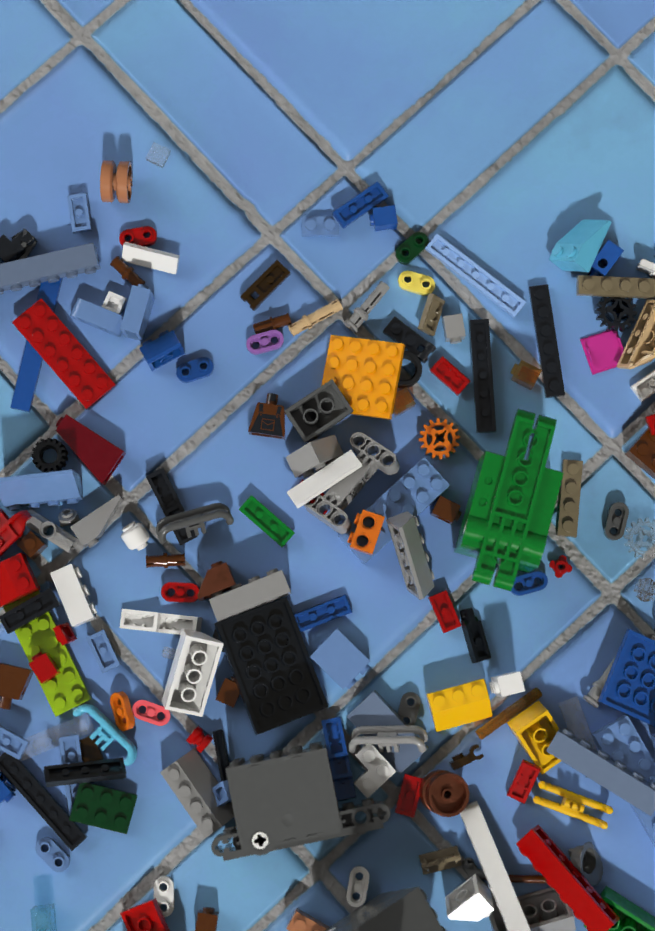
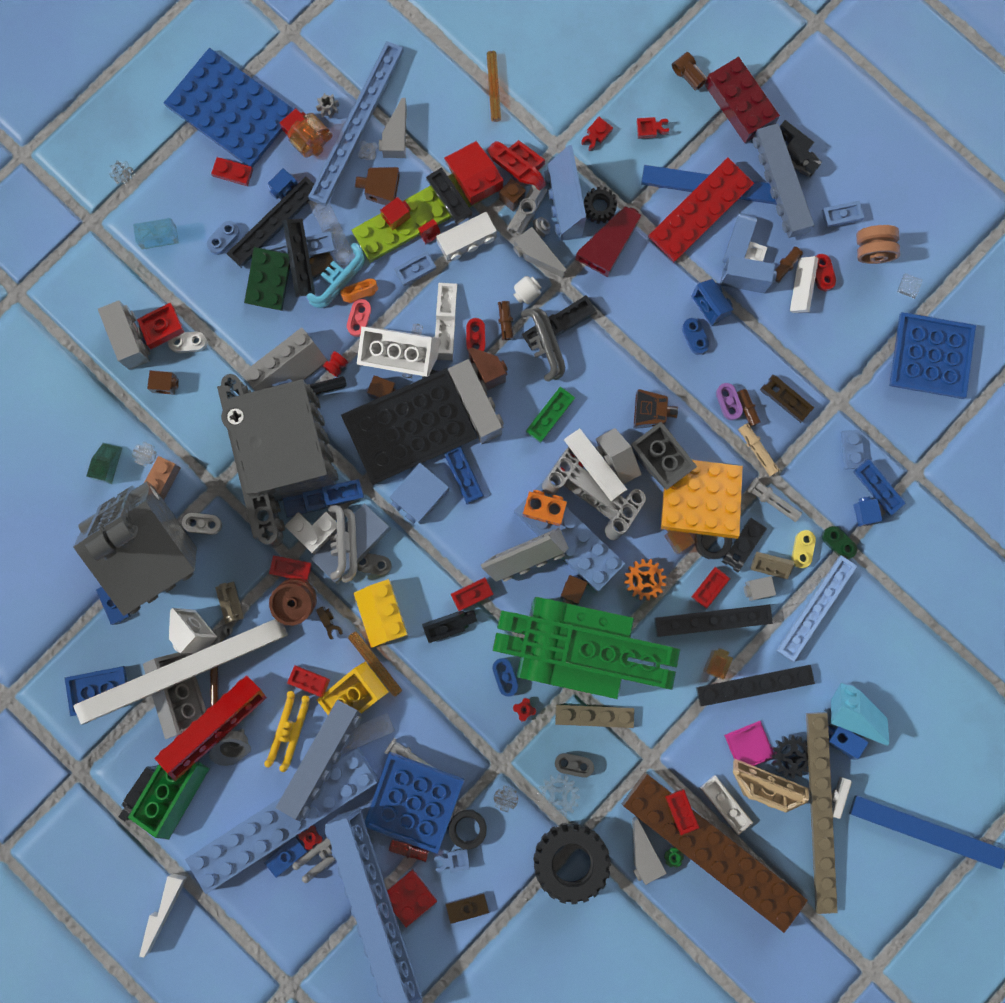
camera: 85 degrees right, 0 degrees up
(231, 140) = (932, 355): none -> blue plate
(506, 684) = (401, 656): white brick -> none

